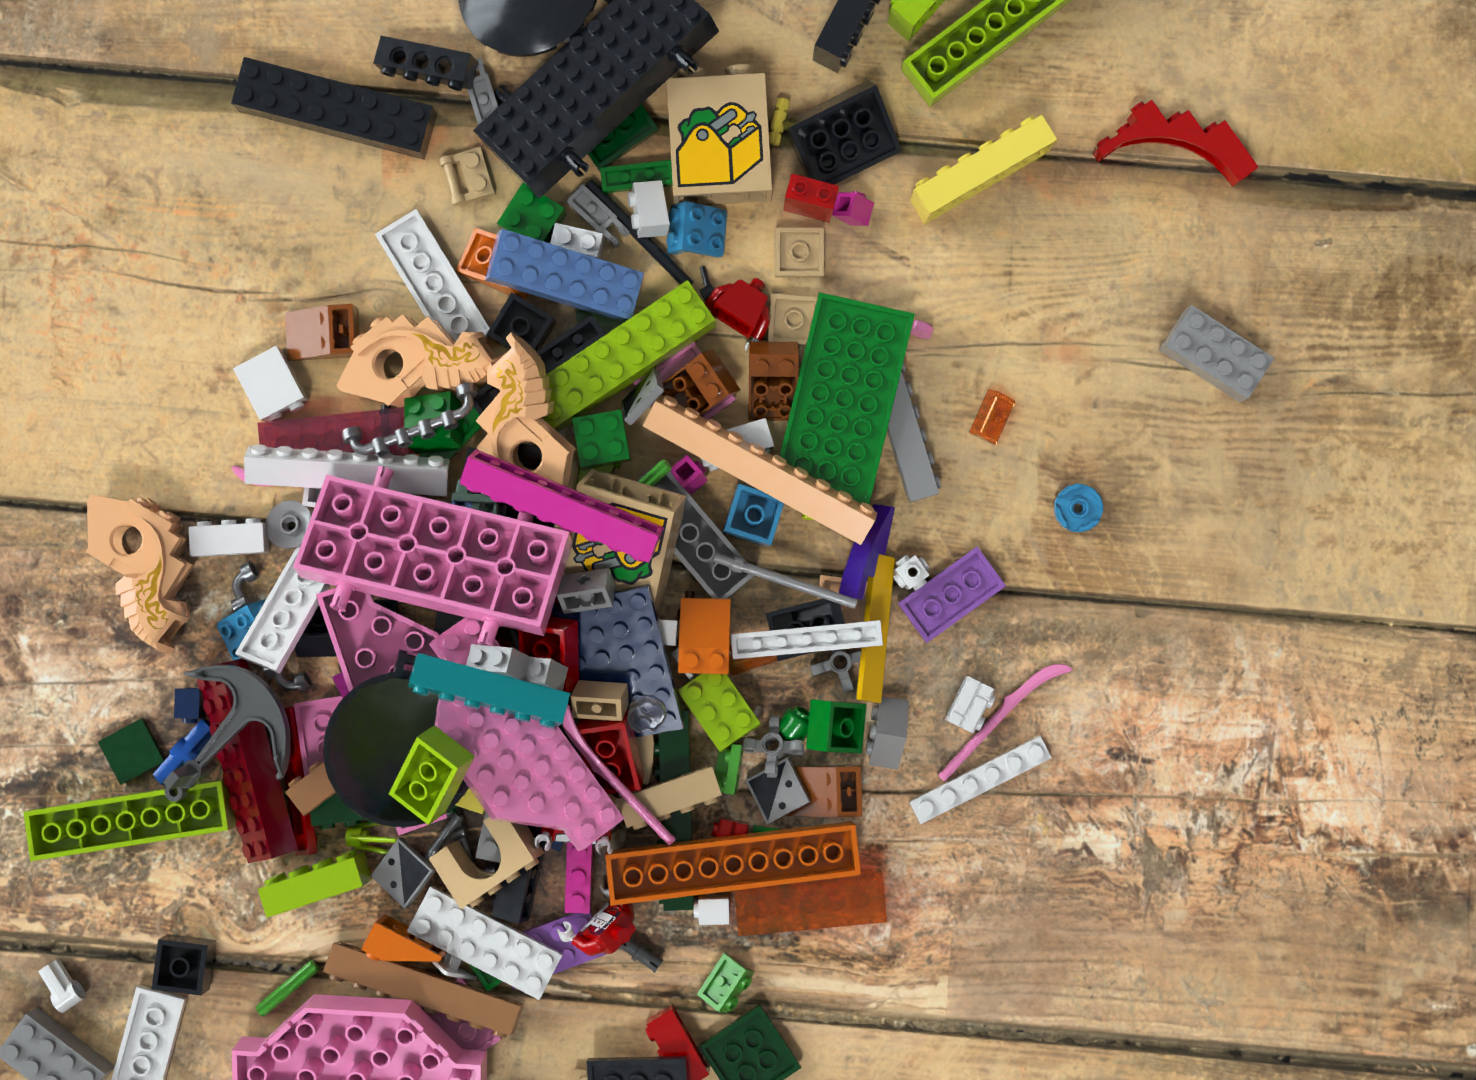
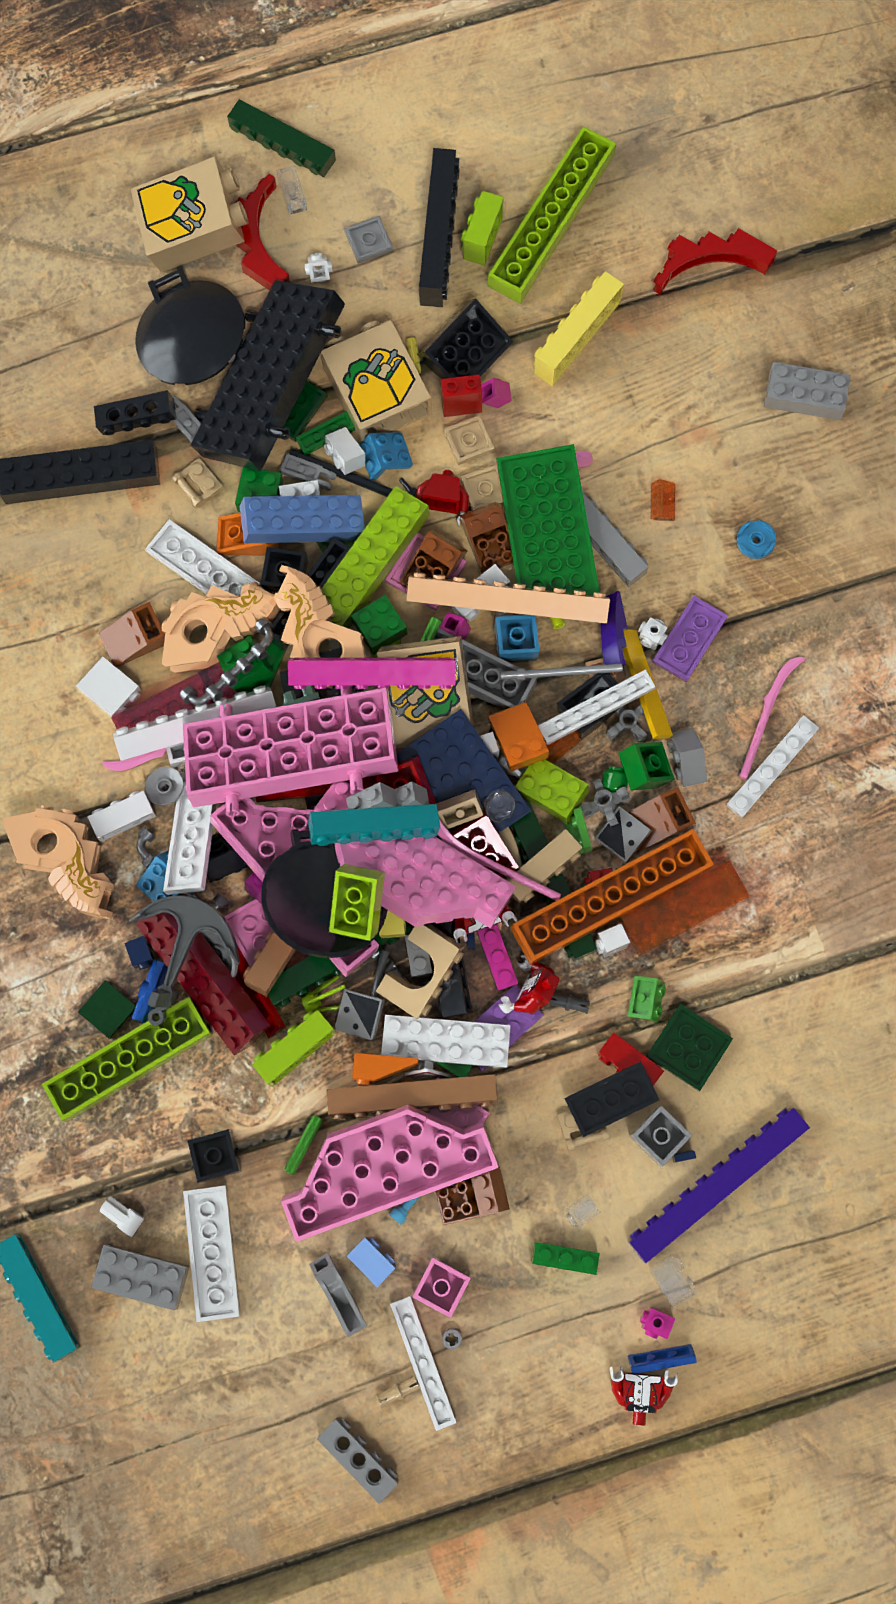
camera: 15 degrees left, 10 degrees down
(586, 591) = (416, 731): light grey brick -> none
(642, 396) = (397, 581): light grey tile -> none
(970, 705) = (740, 712): white brick -> none

